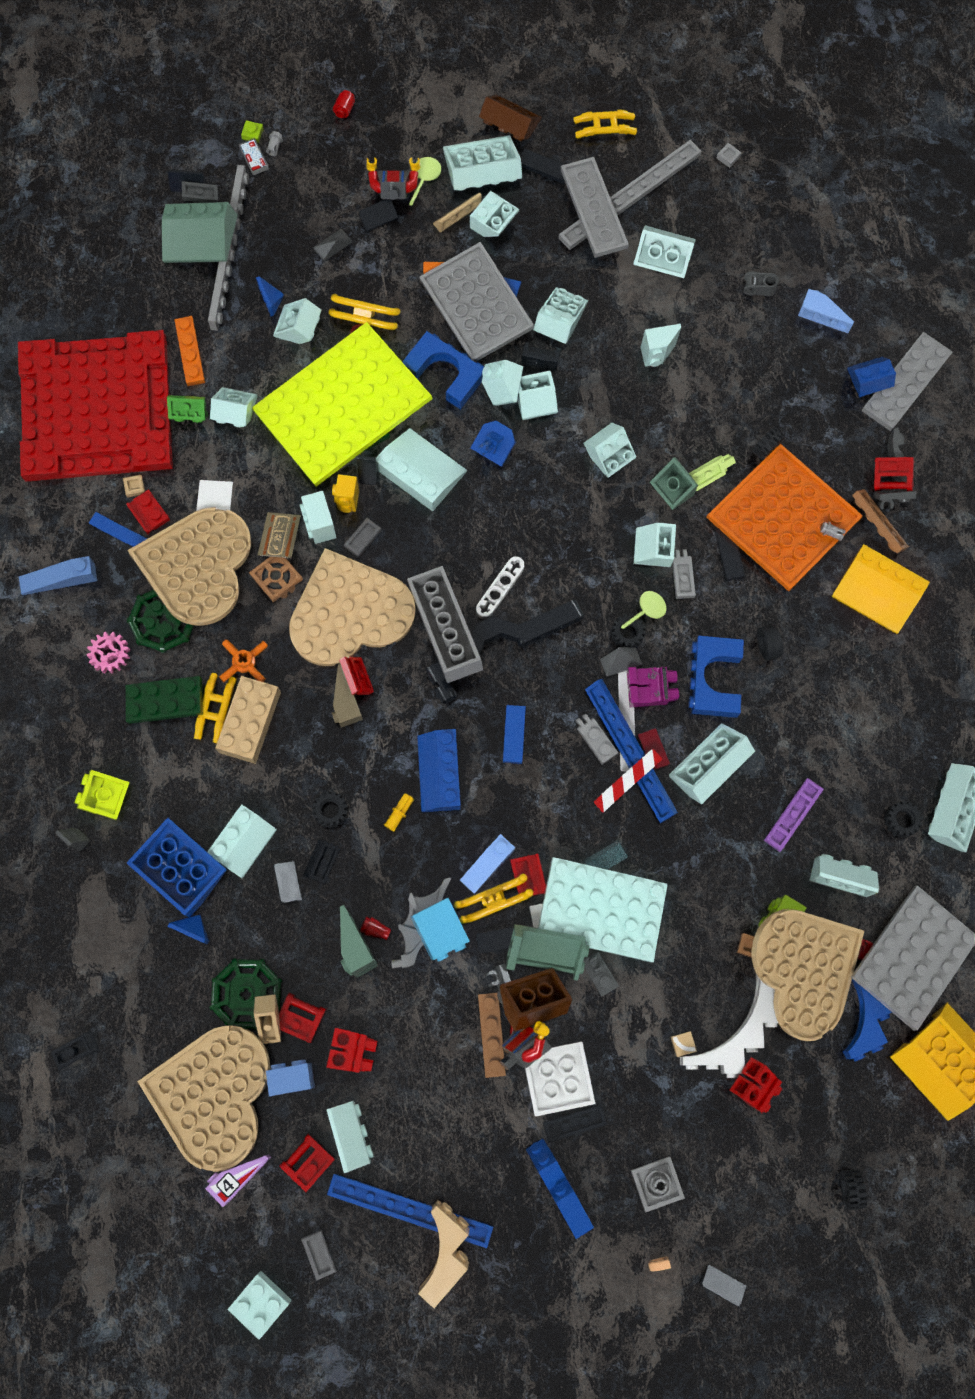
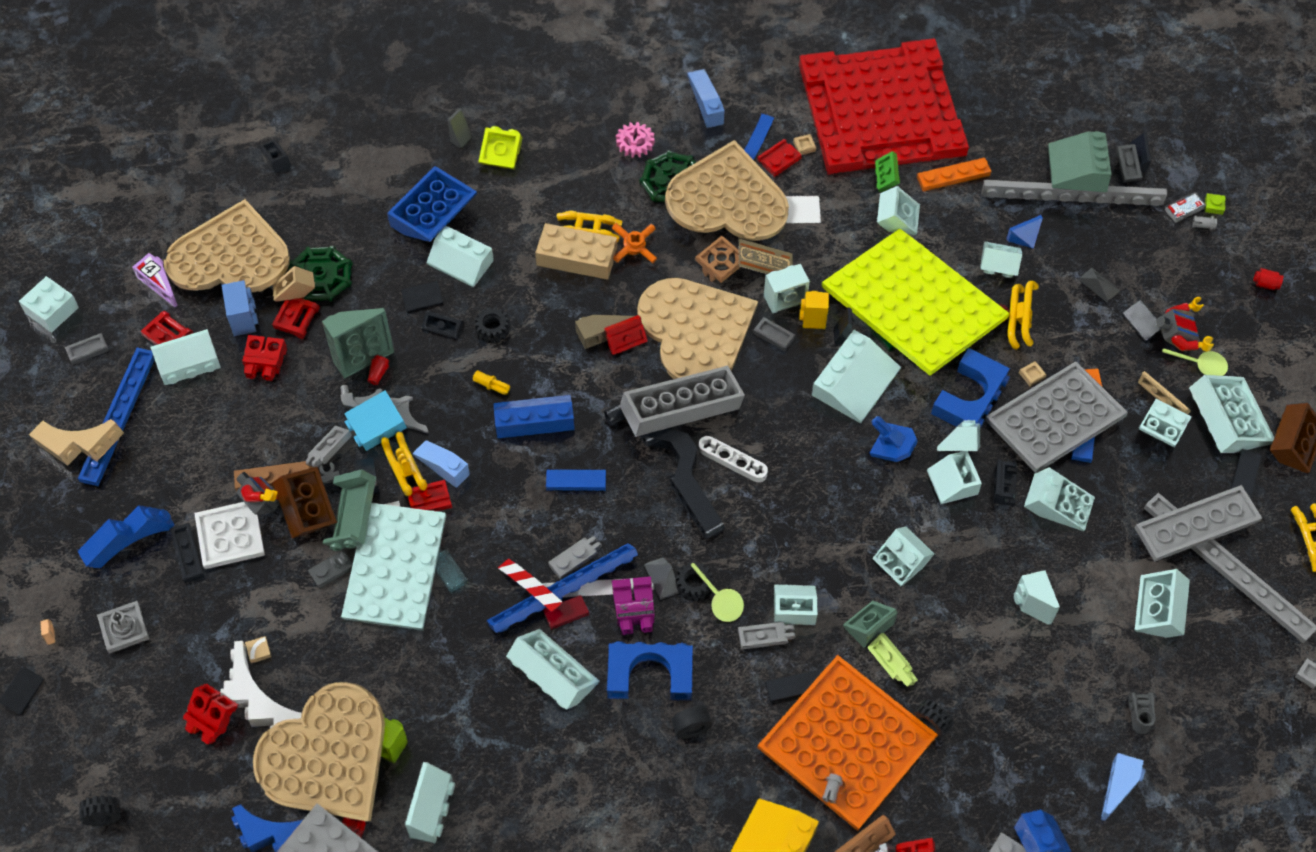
camera: 90 degrees right, 15 degrees down
(164, 699) = (592, 185): dark green plate -> none
(191, 927) = (378, 227): blue slope -> none
(426, 316) = (1032, 374): none -> tan tile
(465, 978) = (328, 446): none -> light grey hinge
(793, 814) = (499, 755): medium lavender plate -> none

